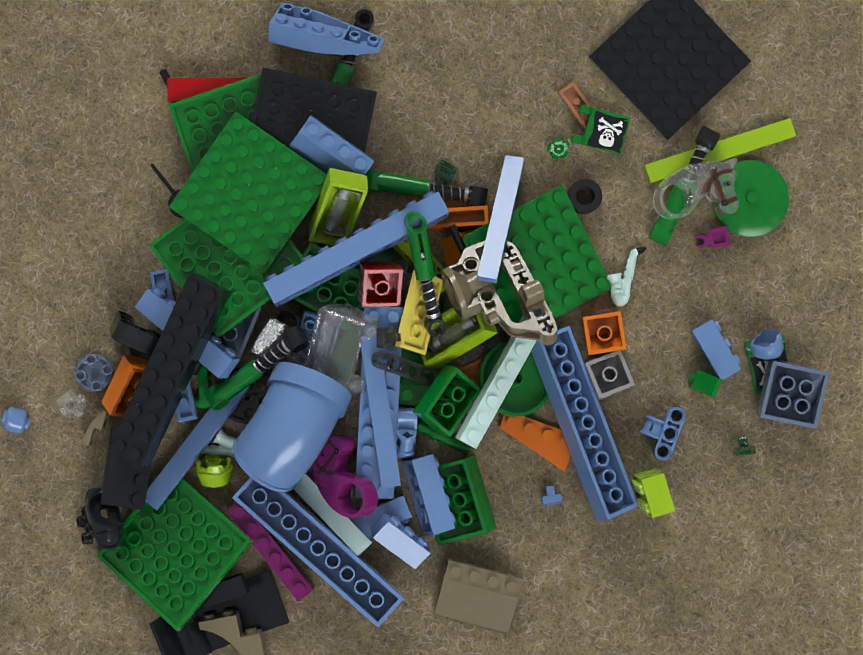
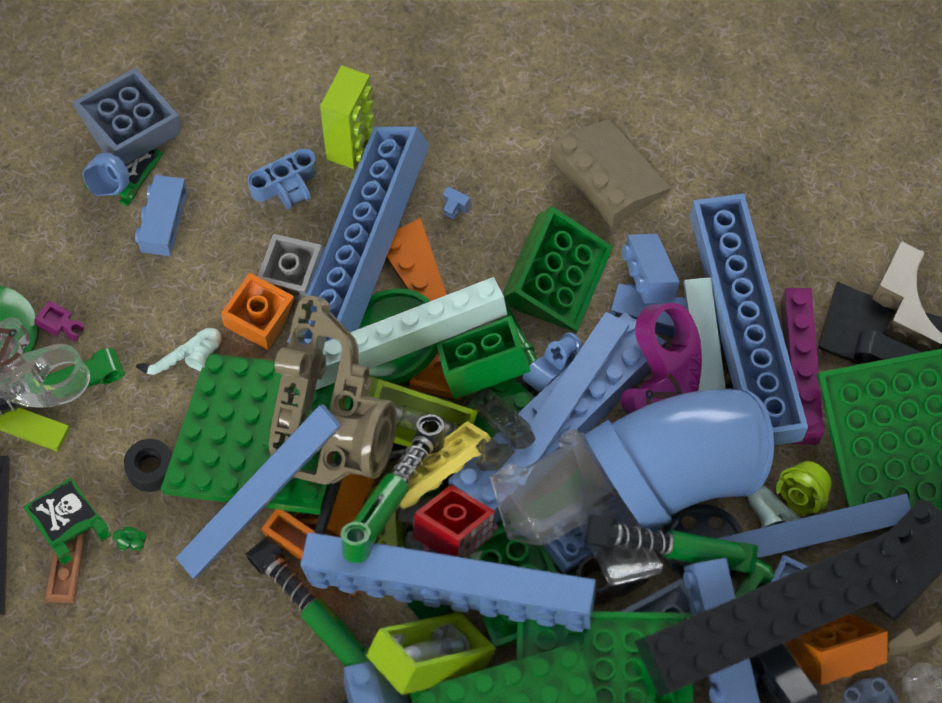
camera: 140 degrees left, 25 degrees down
(428, 494) = (583, 289): medium blue slope -> none
(445, 170) = (273, 611): clear green tile -> none
(704, 383) = (202, 188): green slope -> none
(744, 448) = (222, 109): clear green tile -> none

